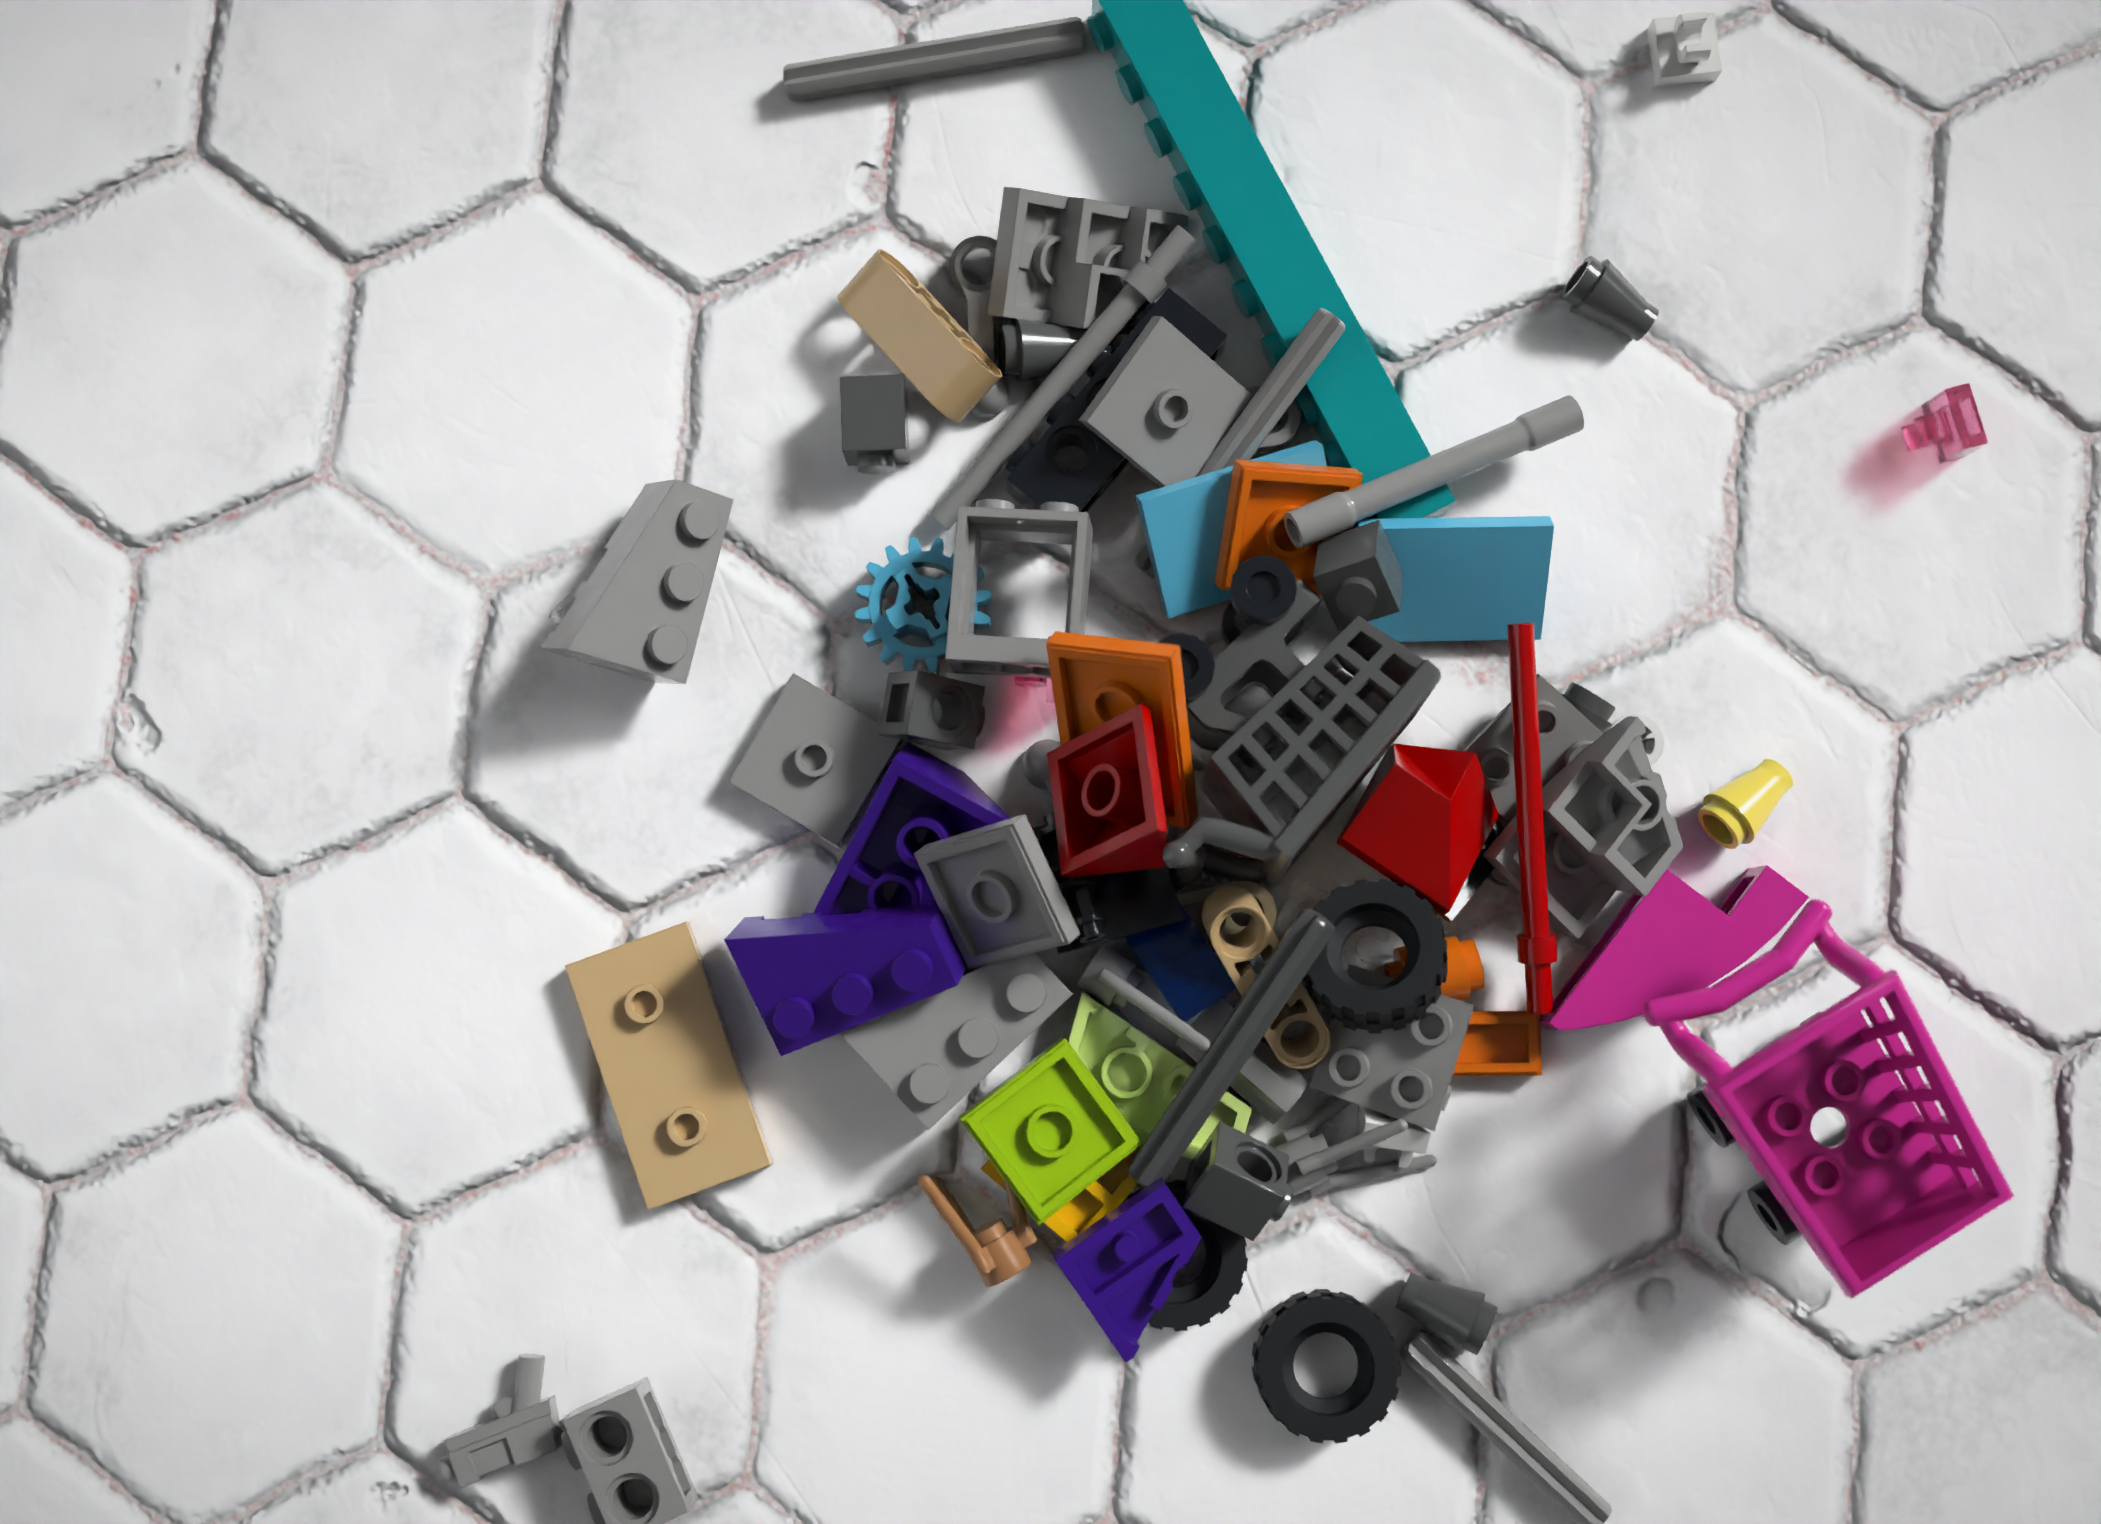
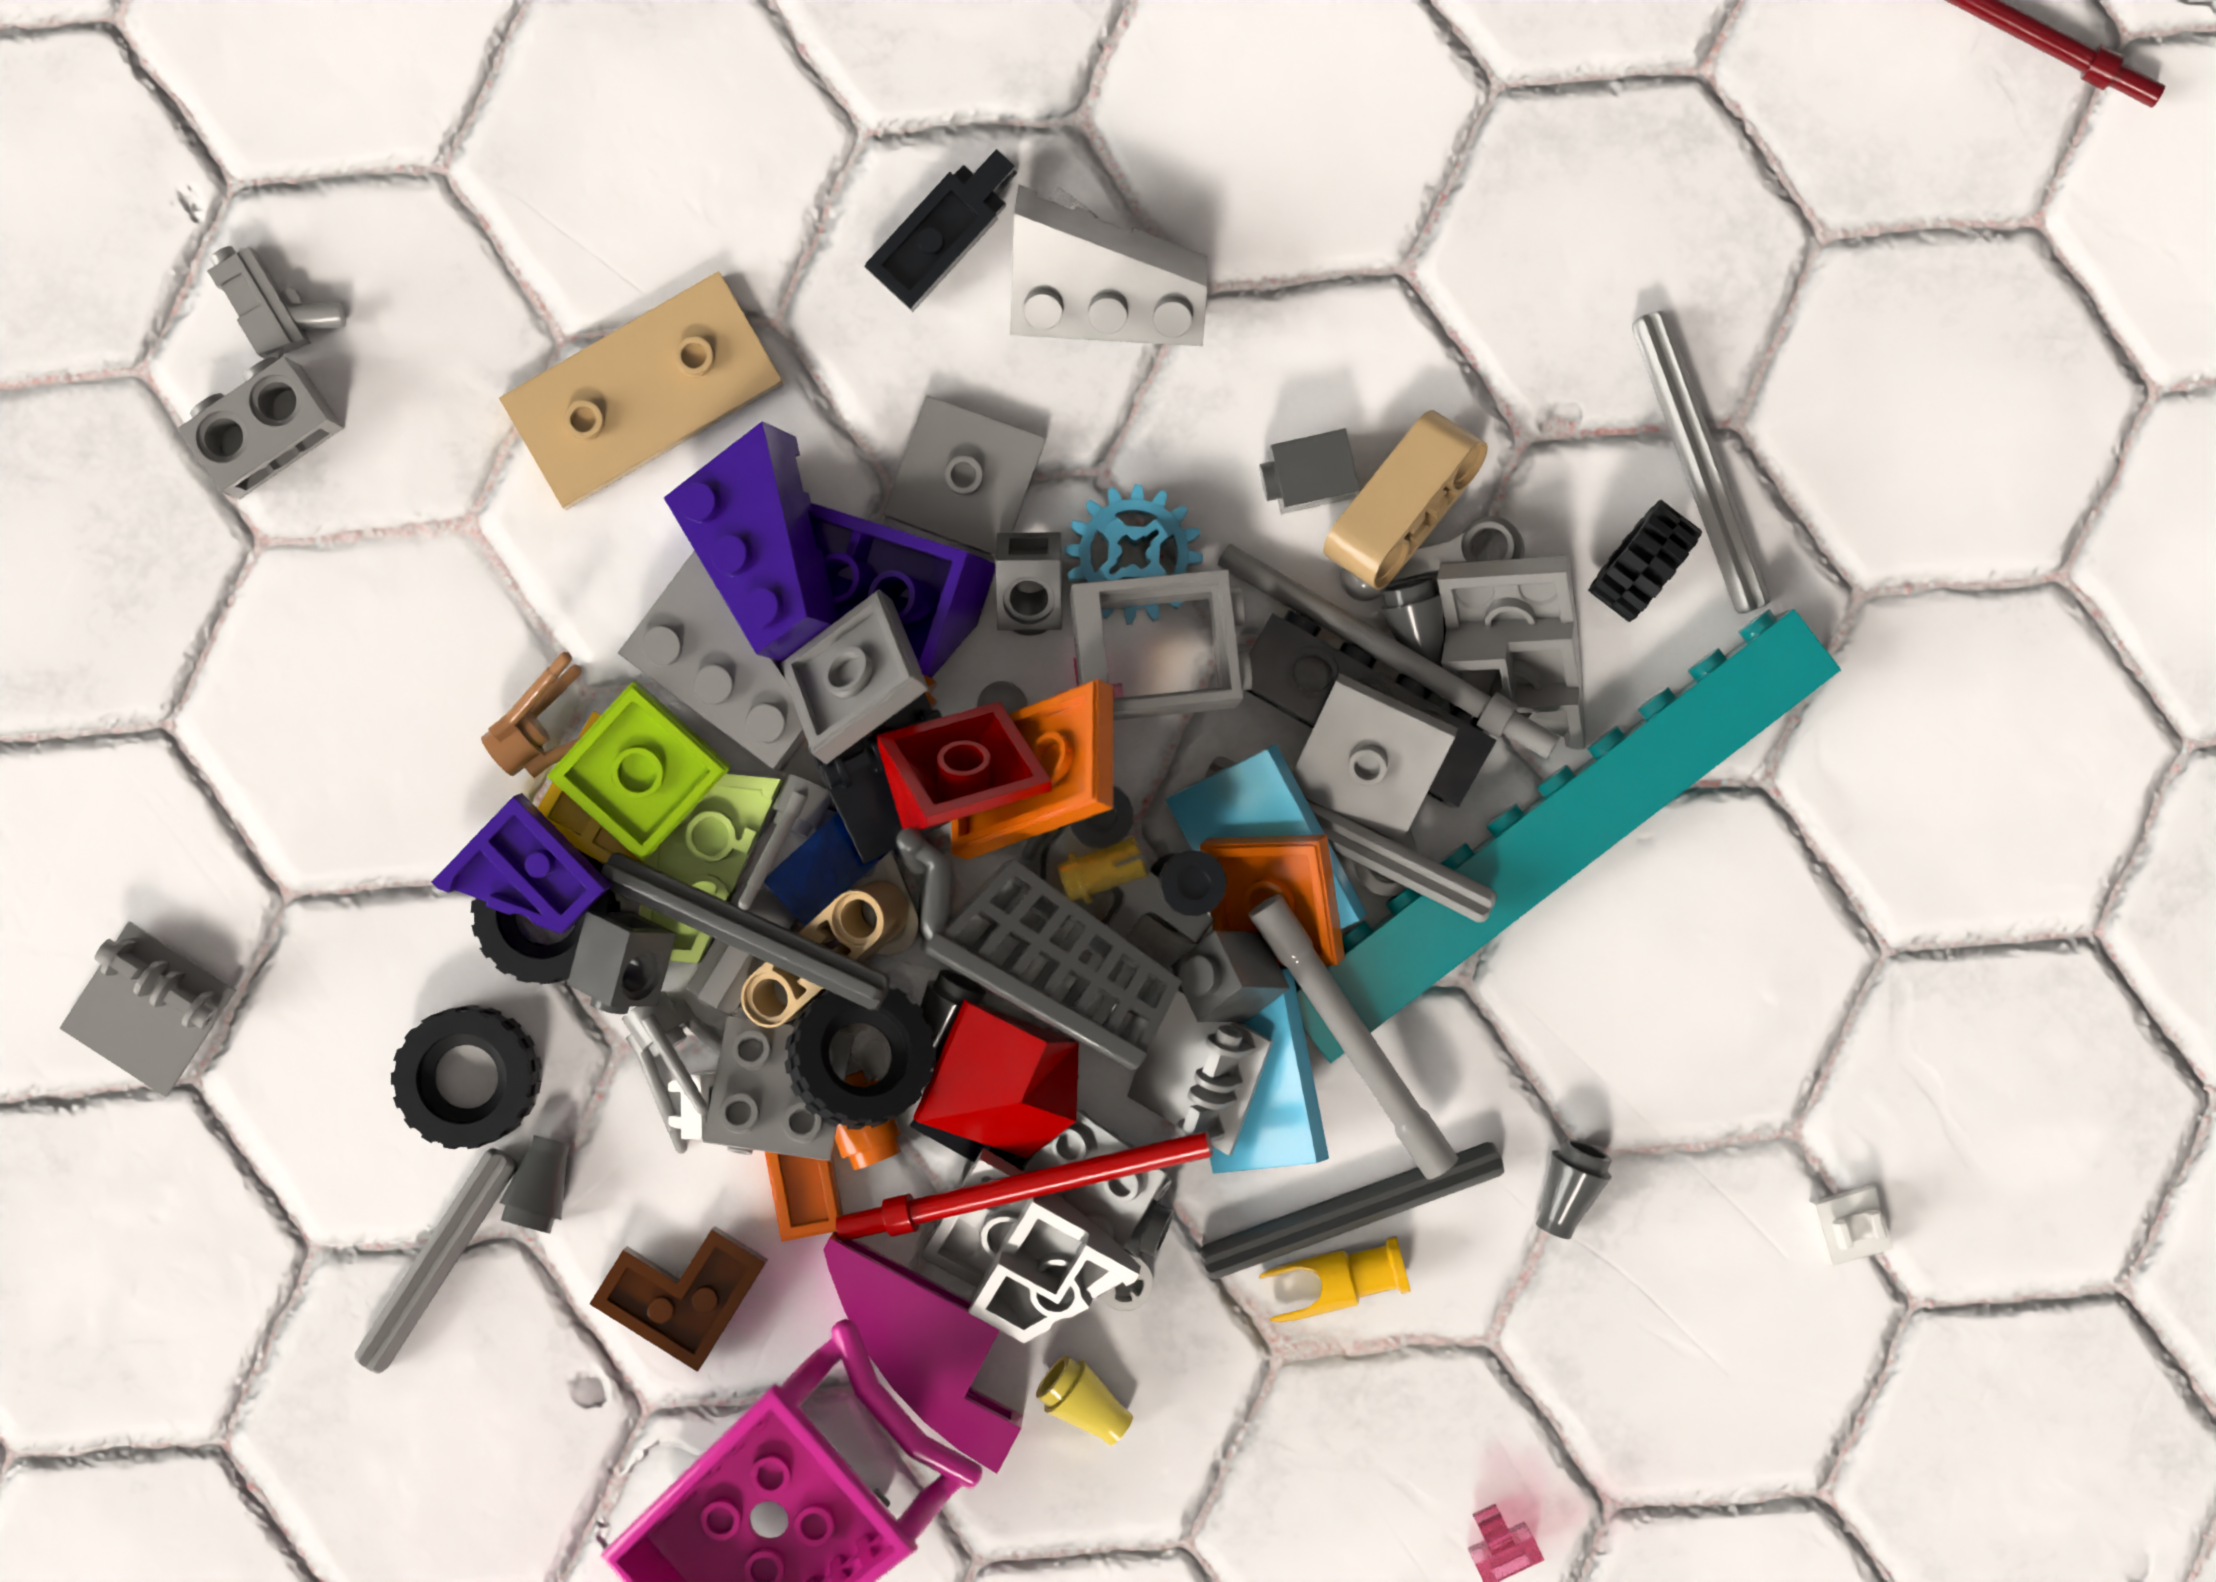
camera: 80 degrees right, 5 degrees up
(569, 738) = (941, 230): none -> black hinge
(1021, 119) = (1645, 561): none -> black tyre
(1239, 675) = (1098, 870): none -> clear yellow pin
(1332, 865) = (943, 1002): none -> dark grey cone
(1451, 623) = (1201, 1074): none -> light grey hinge
(1597, 1190) = (683, 1313): none -> reddish brown plate
(1600, 521) = (1348, 1212): none -> dark grey axle
(1663, 525) = (1347, 1277): none -> yellow piece

